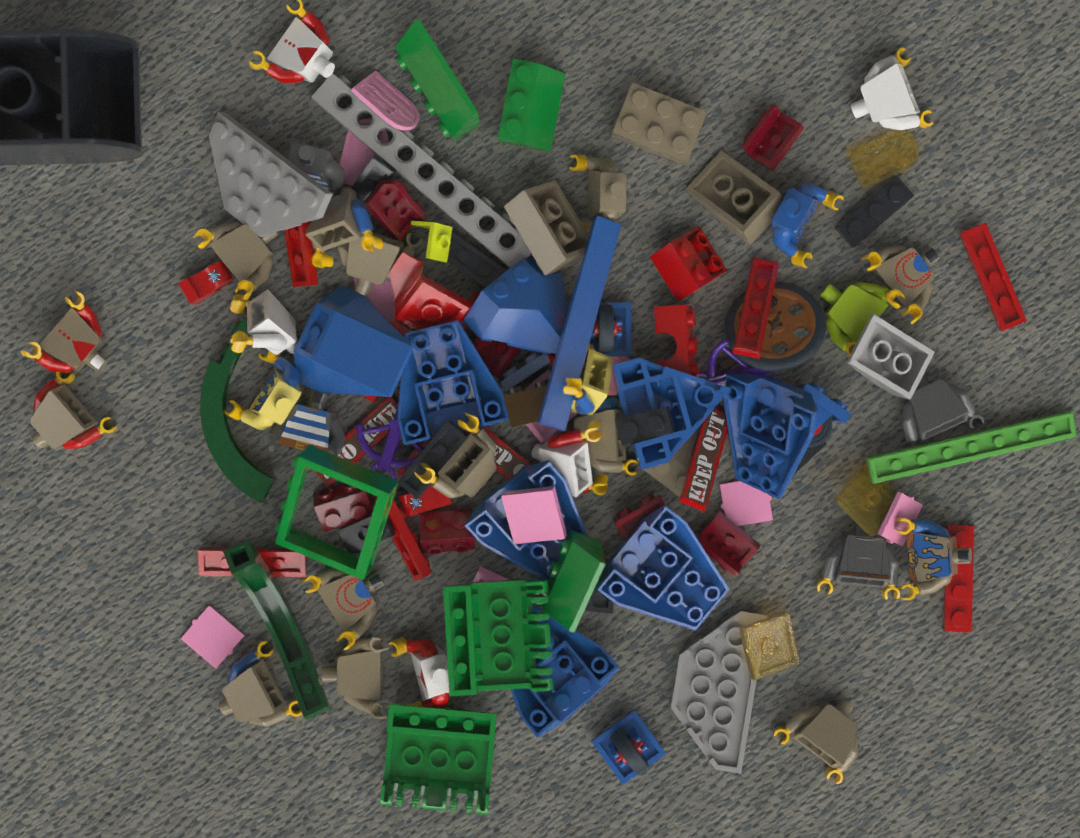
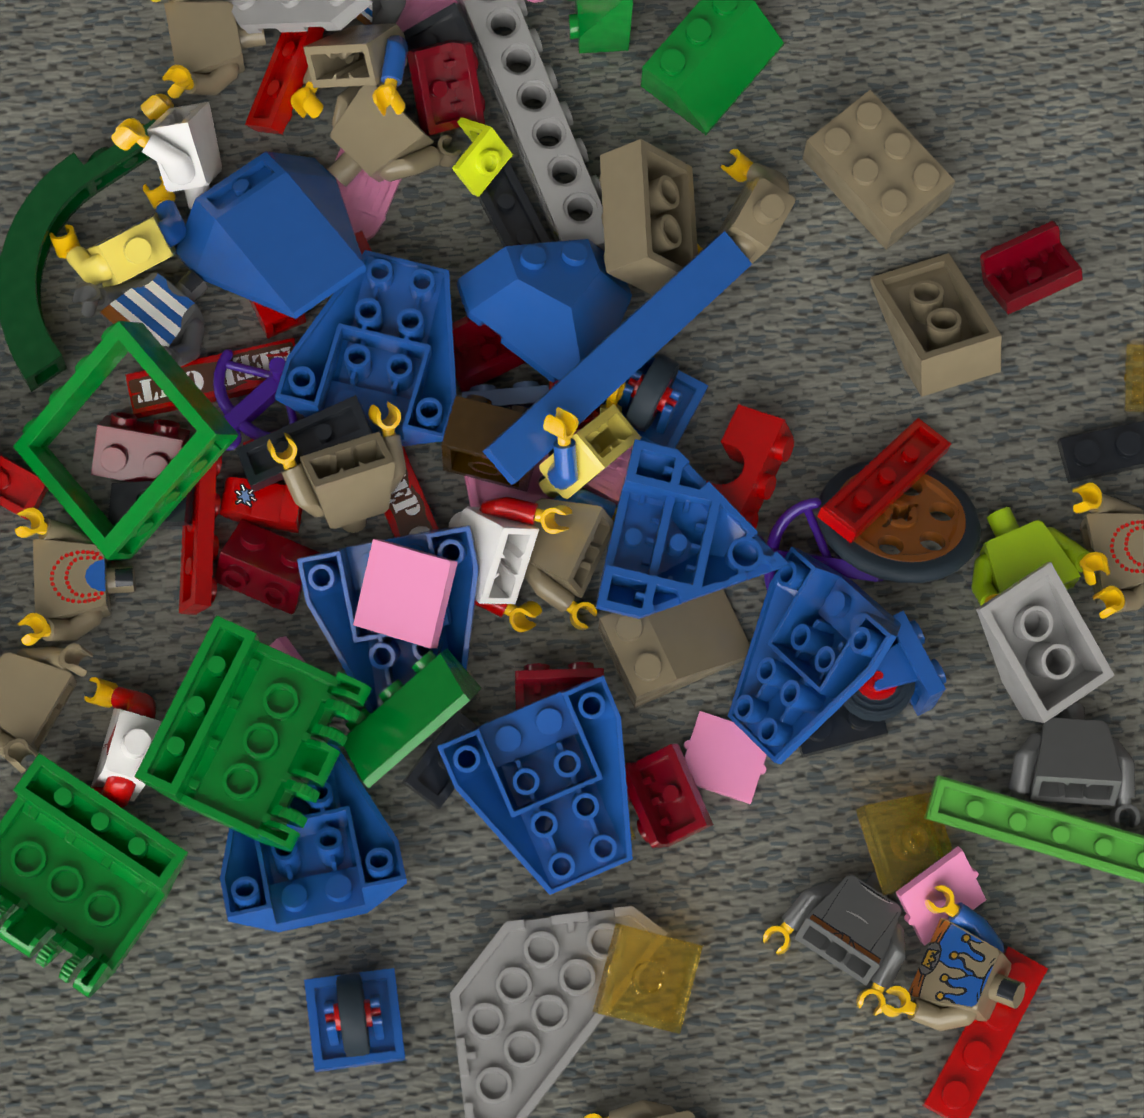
camera: 20 degrees right, 15 degrees down
(206, 282) = (129, 55): red leg -> none
(421, 301) = (417, 221): red piece -> none
(645, 425) = (636, 550): black plate -> none
(688, 263) = (819, 376): red slope -> none
(704, 460) = (696, 650): tile -> none
(795, 215) = (1007, 387): torso -> none

